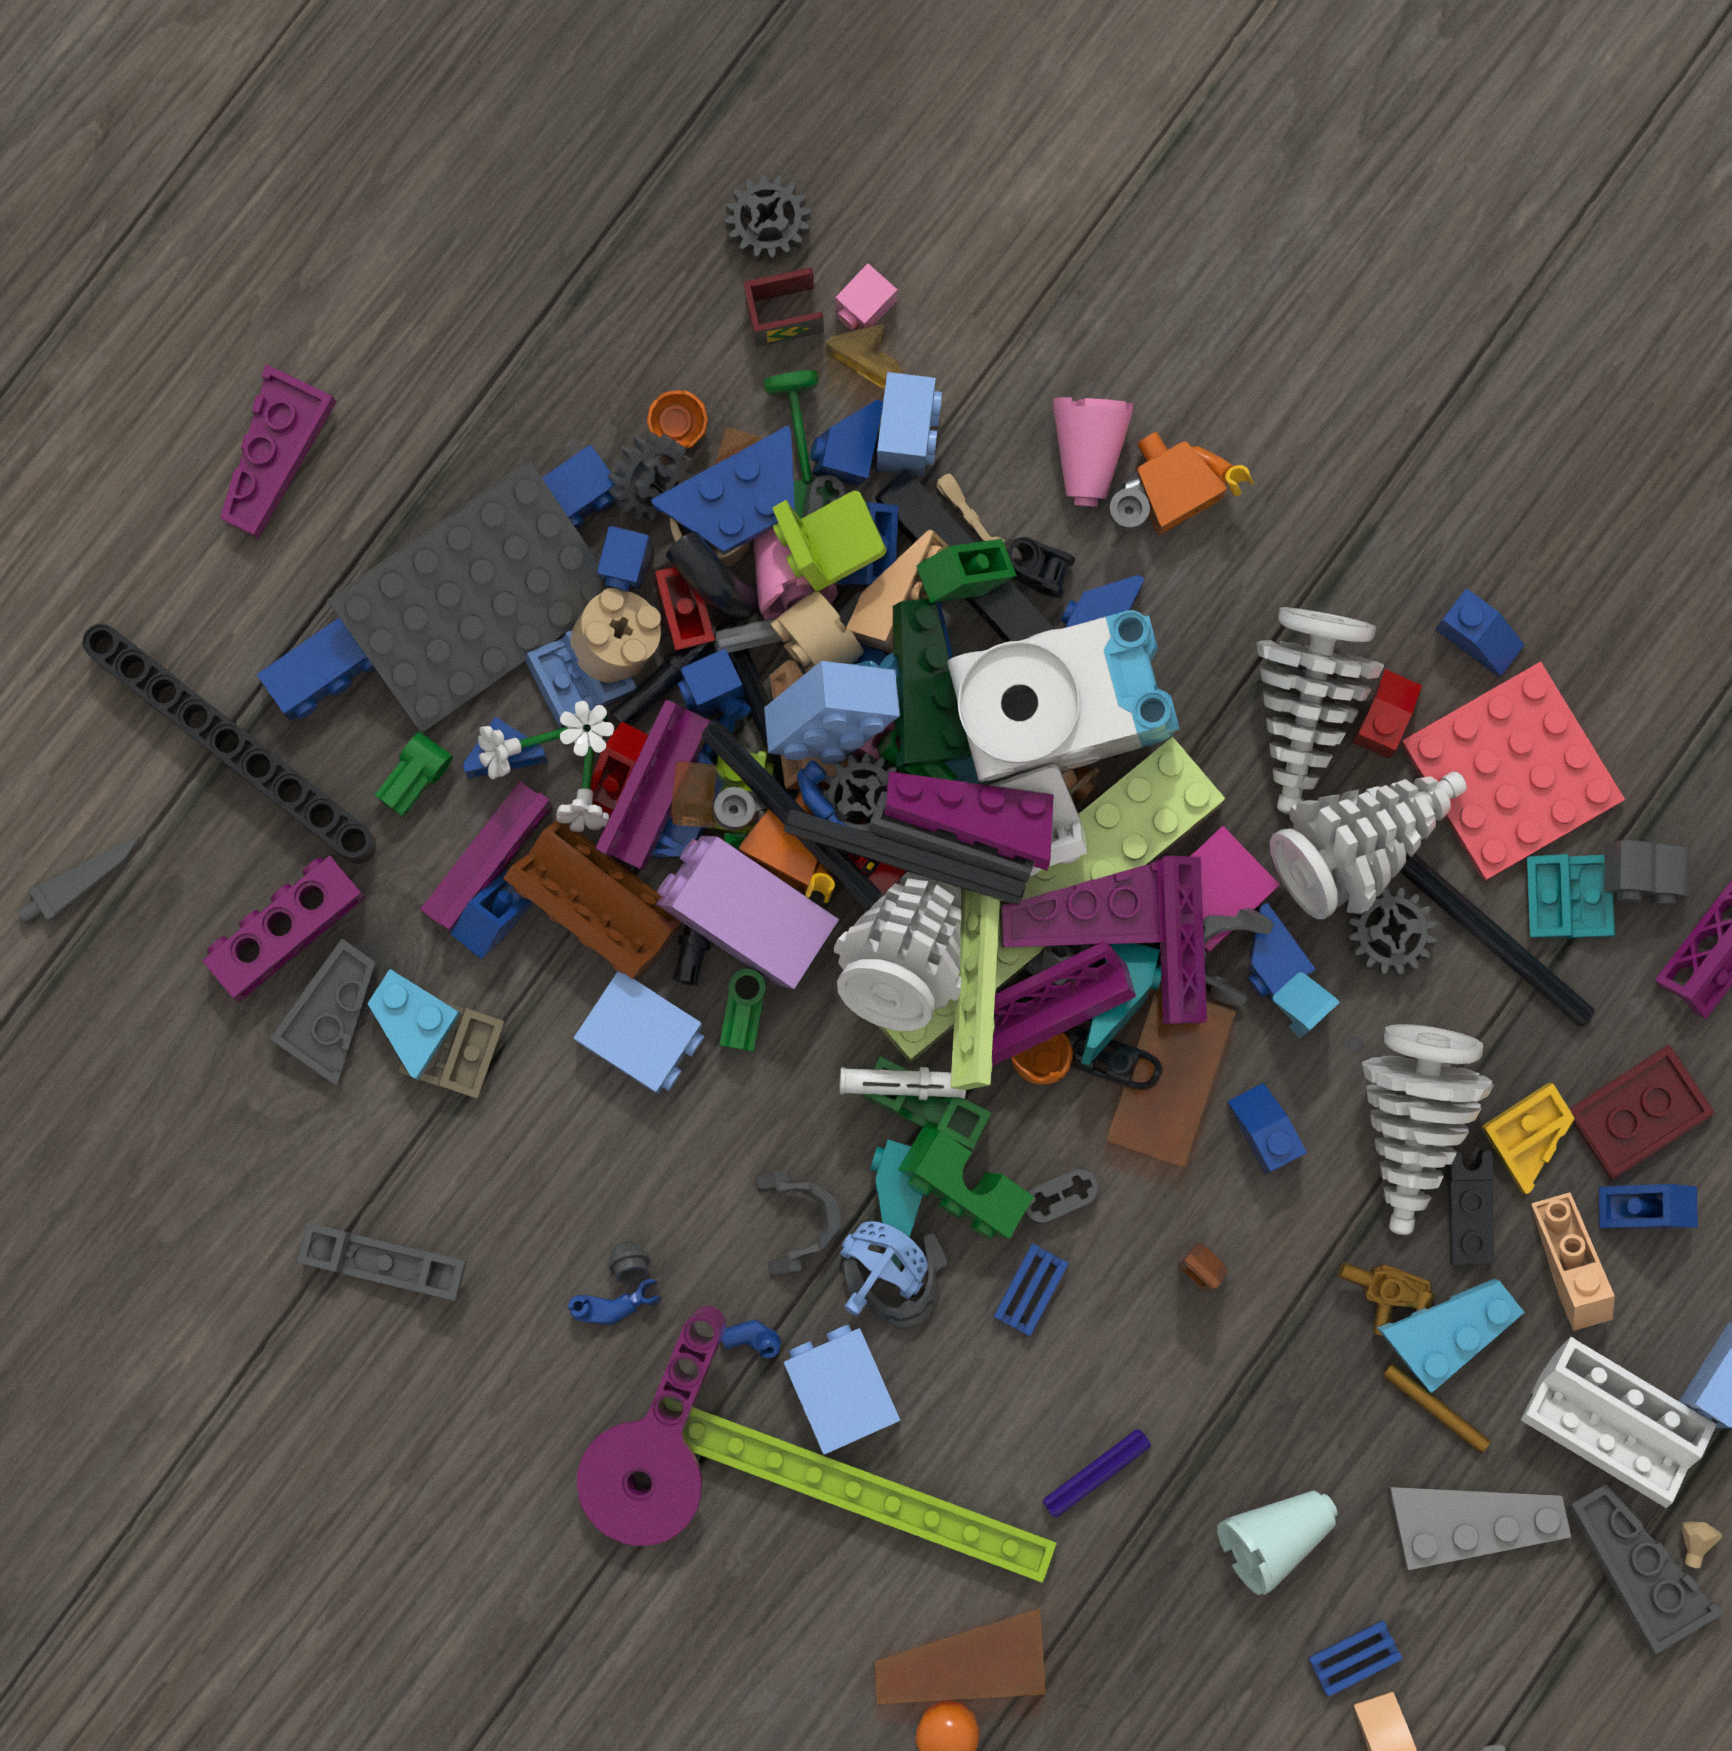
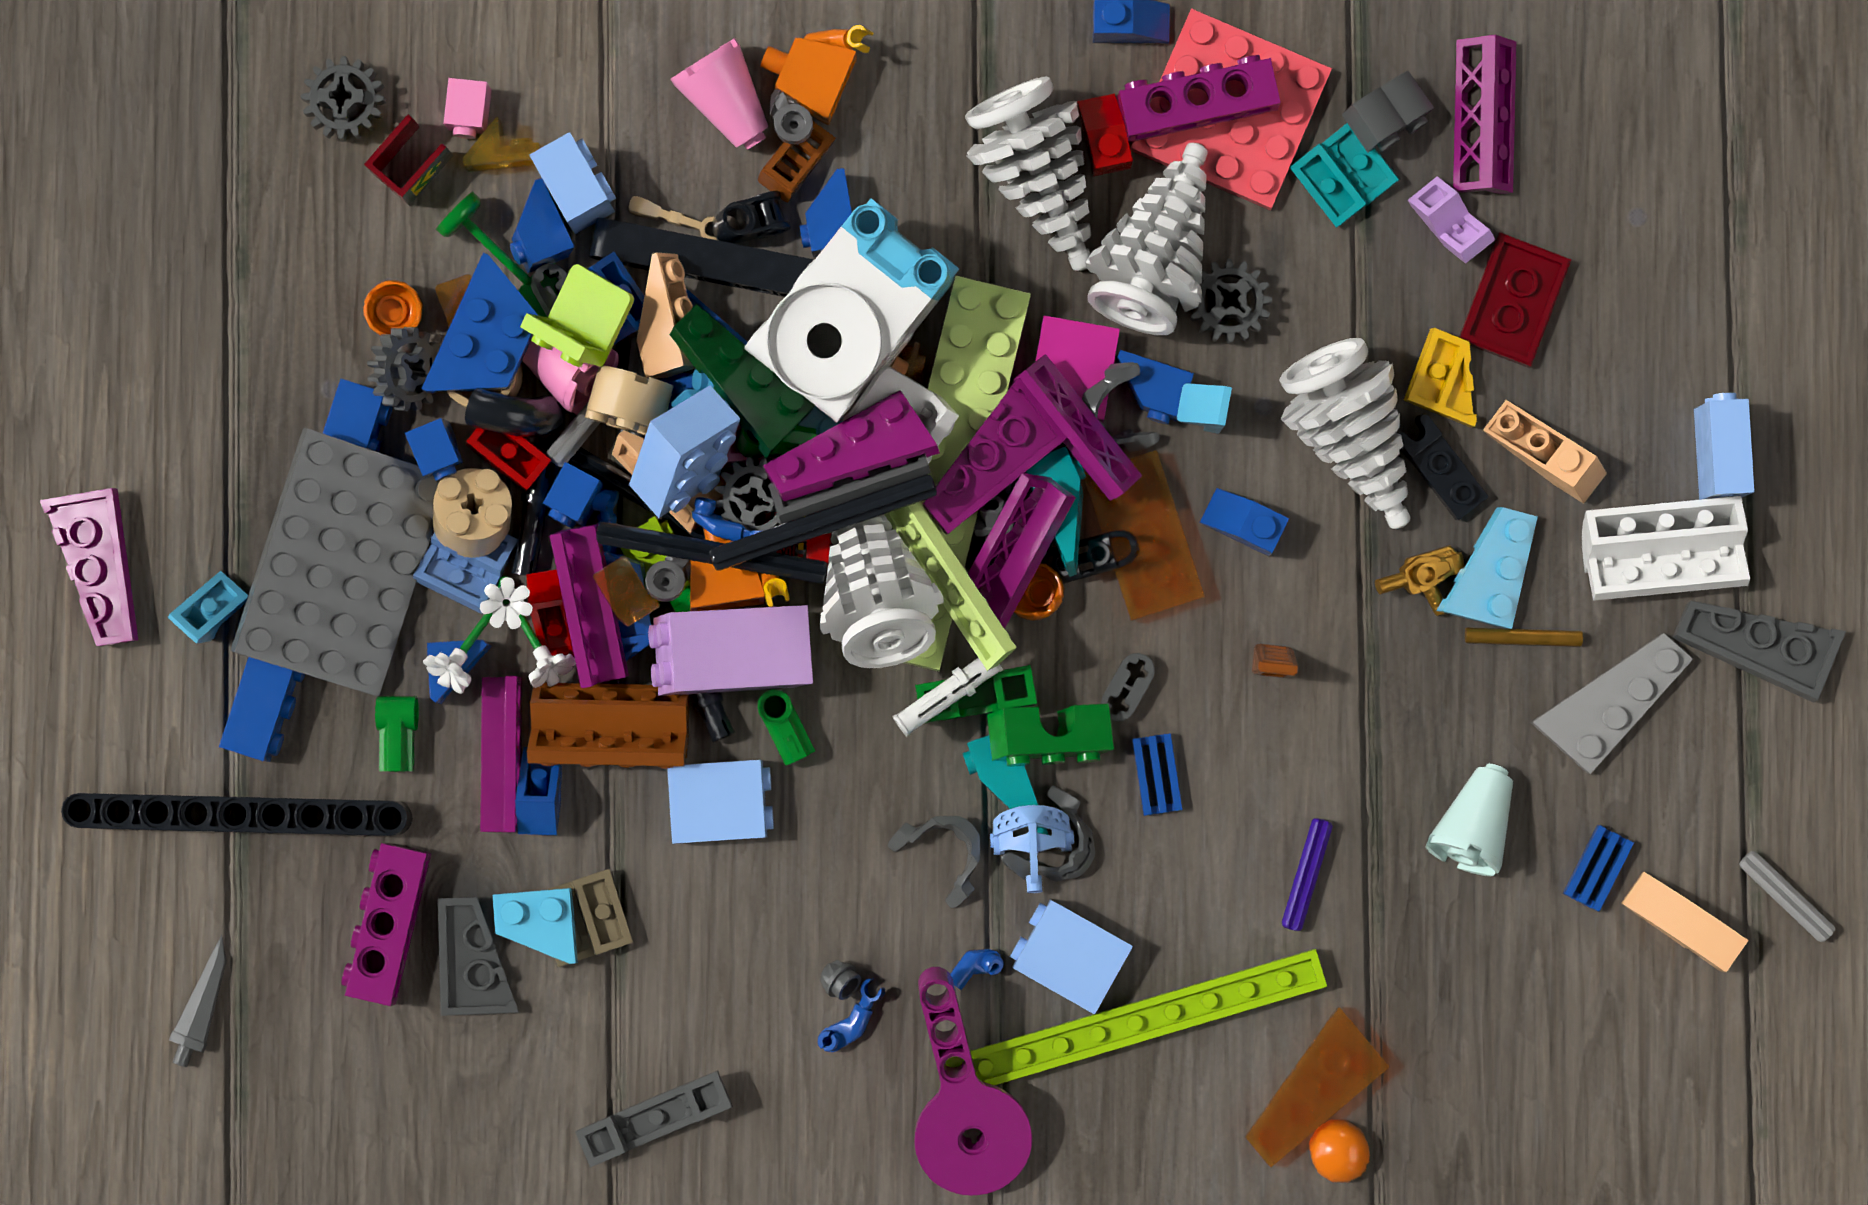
camera: 30 degrees left, 5 degrees up
(335, 554) = (208, 608): none -> medium azure slope
(966, 570) = (705, 265): green brick -> none
(1084, 546) = (775, 182): none -> dark orange slope
(1467, 744) = (1251, 71): none -> magenta brick
(1497, 940) = (1314, 248): black axle -> none
(1633, 1002) = (1450, 220): none -> lavender slope
(1648, 1207) = (1572, 368): blue slope -> none
(1699, 1540) = (1788, 590): tan rock -> none

